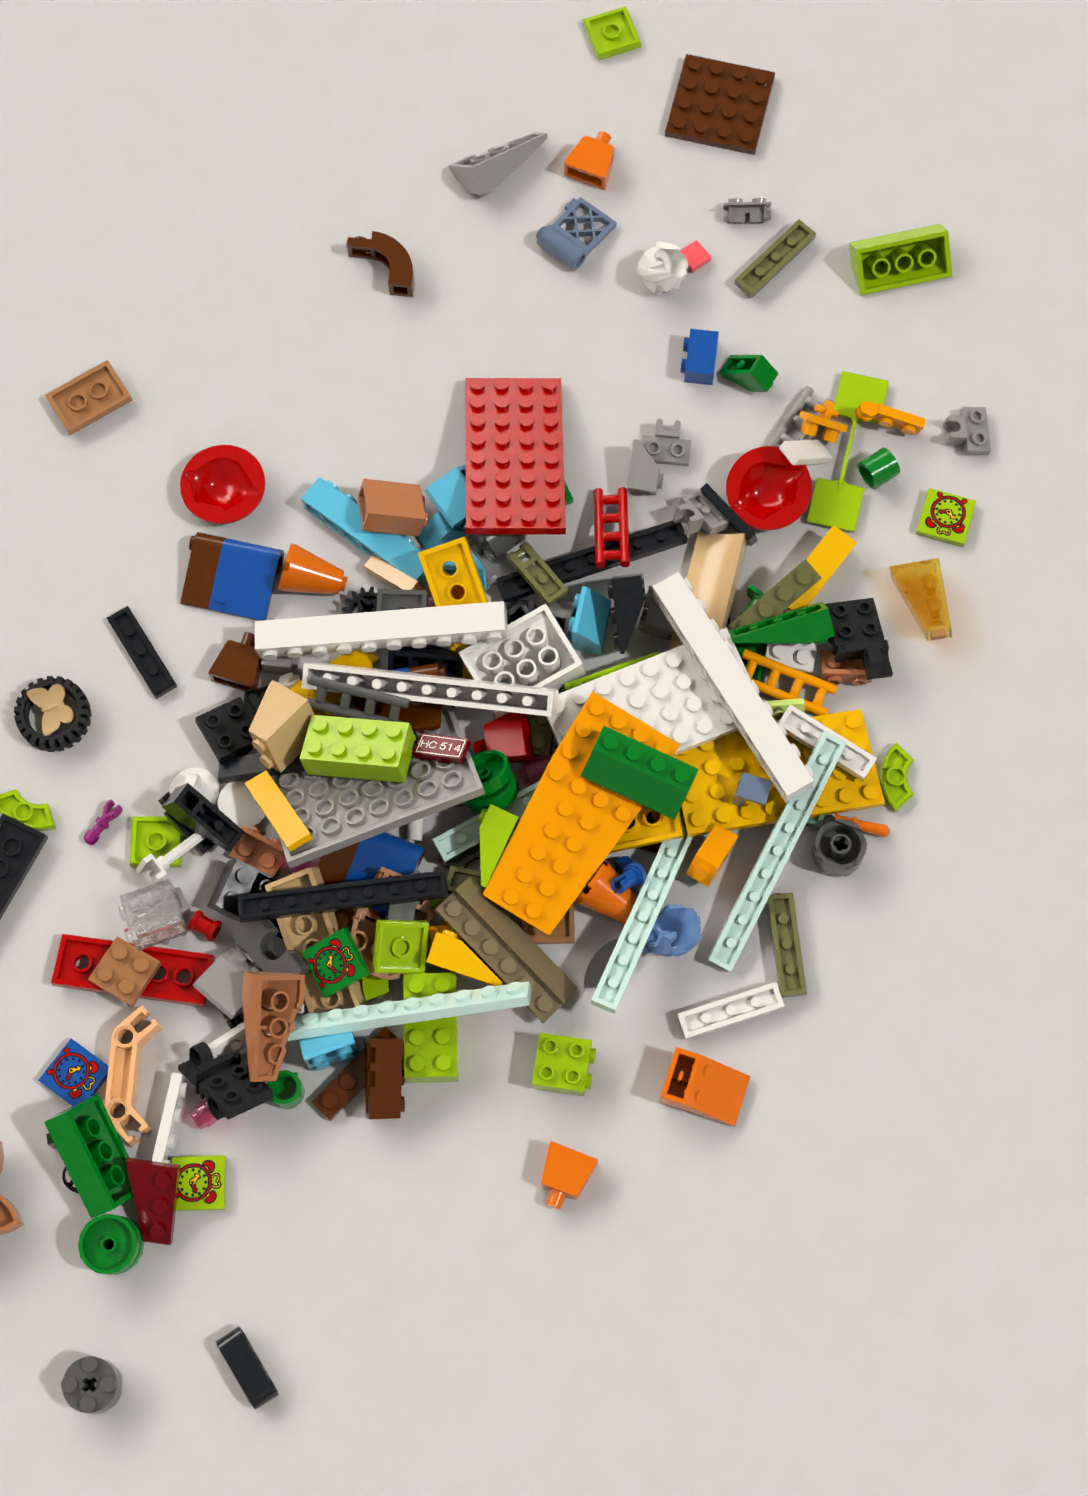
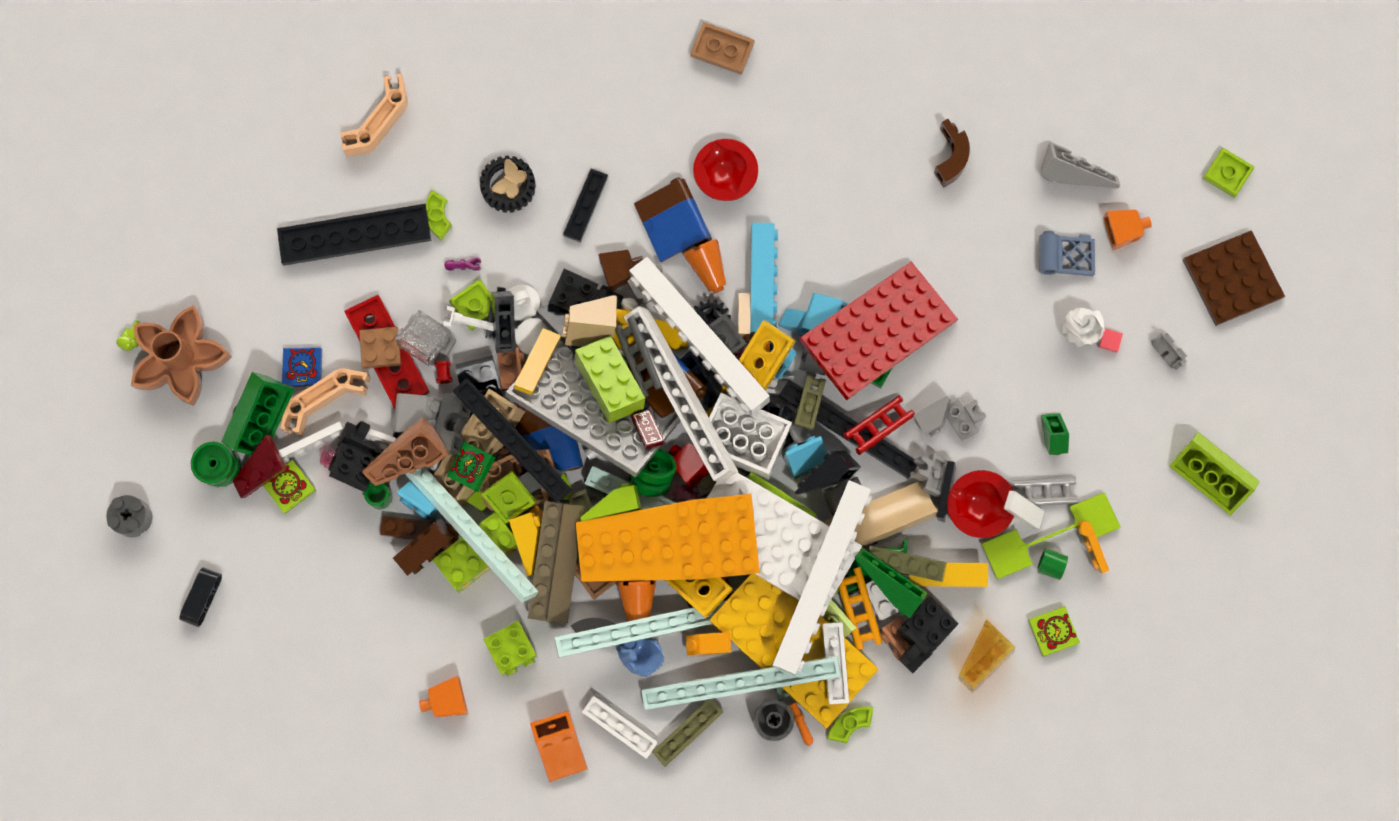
camera: 50 degrees right, 5 degrees up
(392, 507) = (787, 282): nougat brick -> none
(630, 874) = (658, 604): blue arm -> none
(639, 772) = (719, 561): green slope -> none
(701, 356) = (1041, 395): blue brick -> none
(751, 789) = (765, 639): sand blue panel -> none
(775, 258) = (1150, 392): olive plate -> none
(831, 428) = (1057, 513): light orange hips -> none
(970, 430) = (1127, 604): light grey plate -> none

